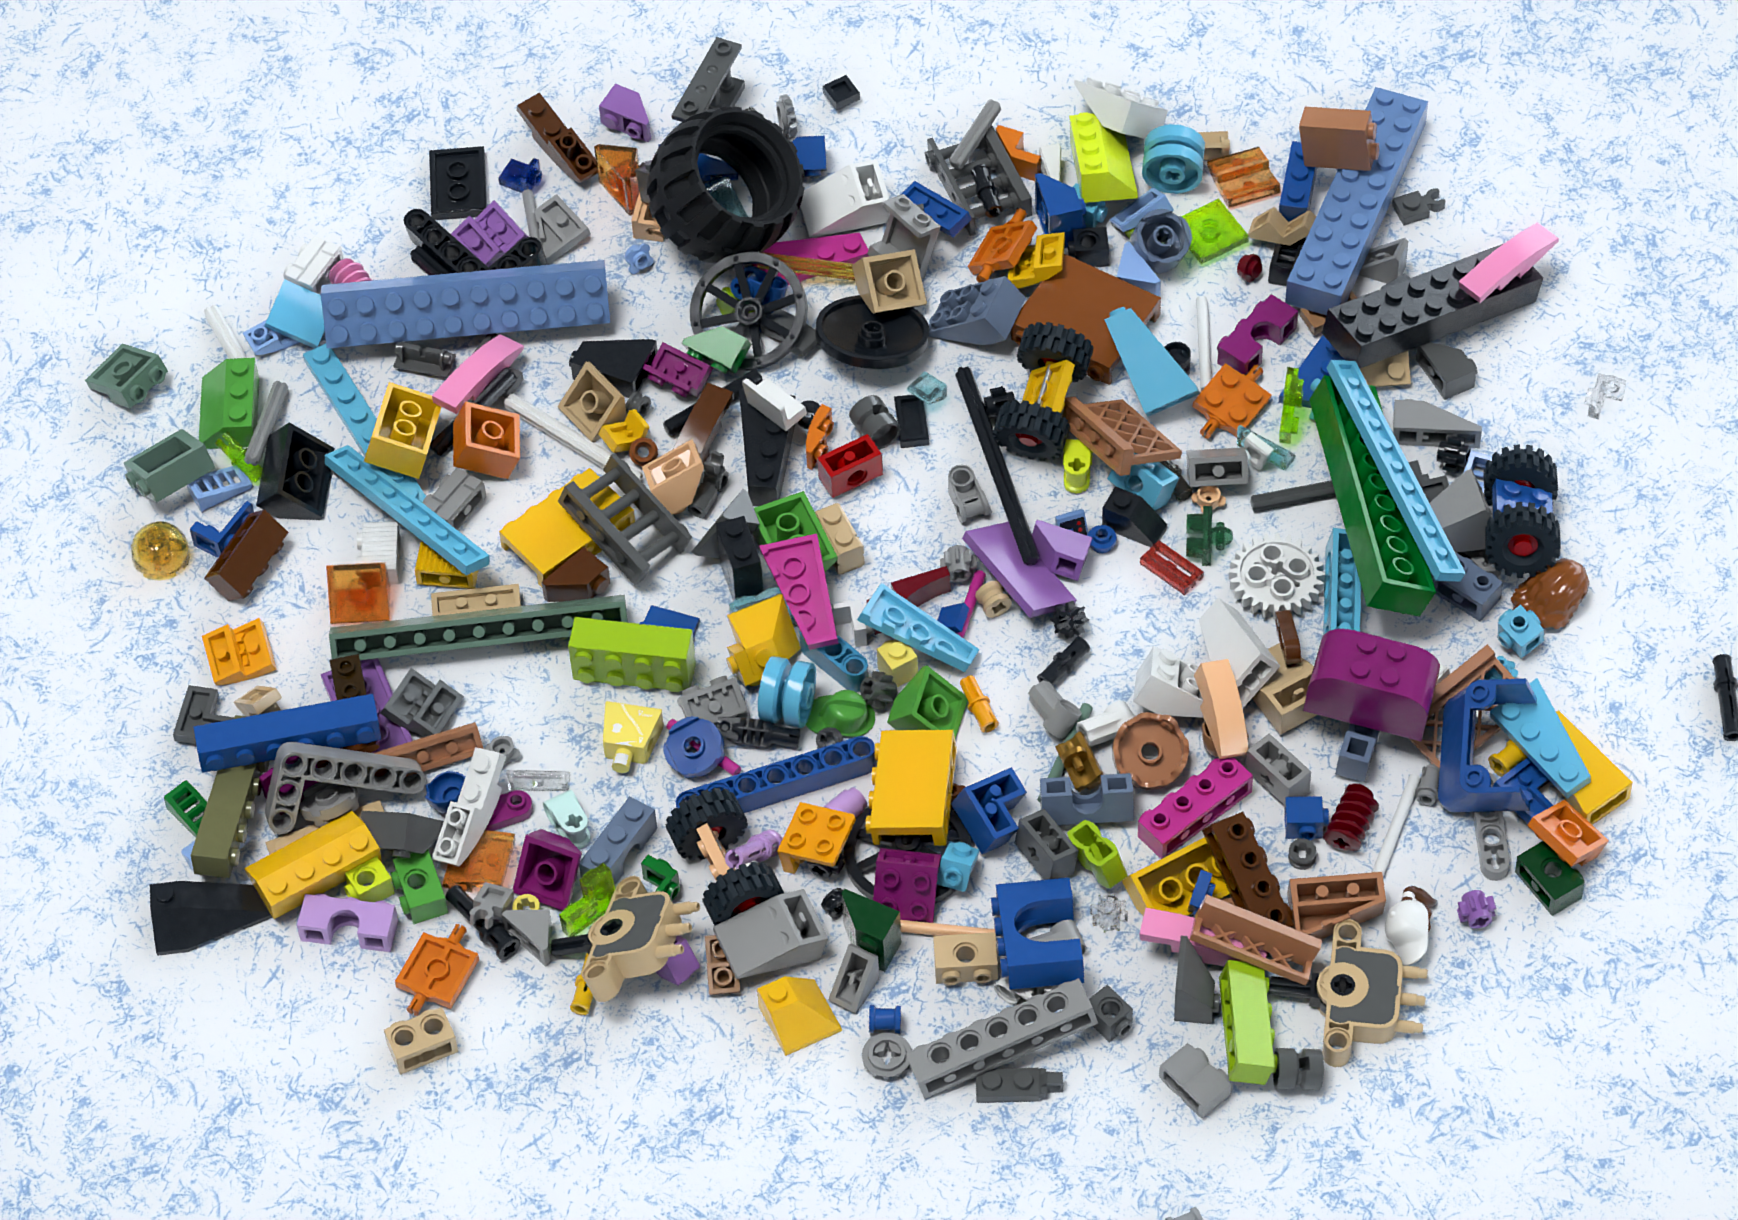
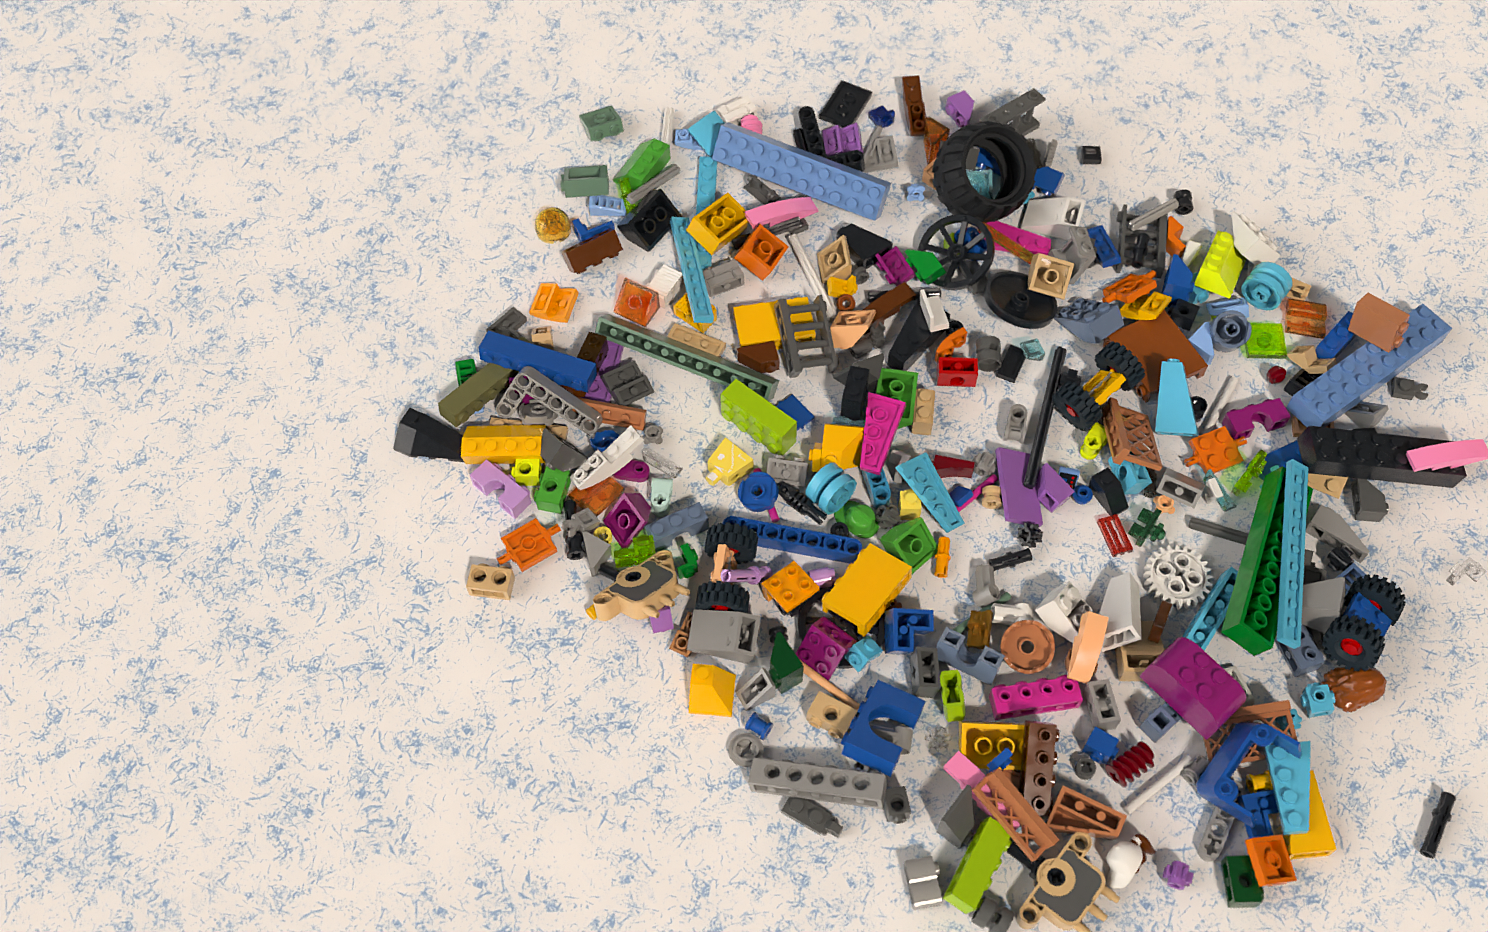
camera: 30 degrees right, 5 degrees up
(1000, 92) = (1185, 202): none -> black wheel

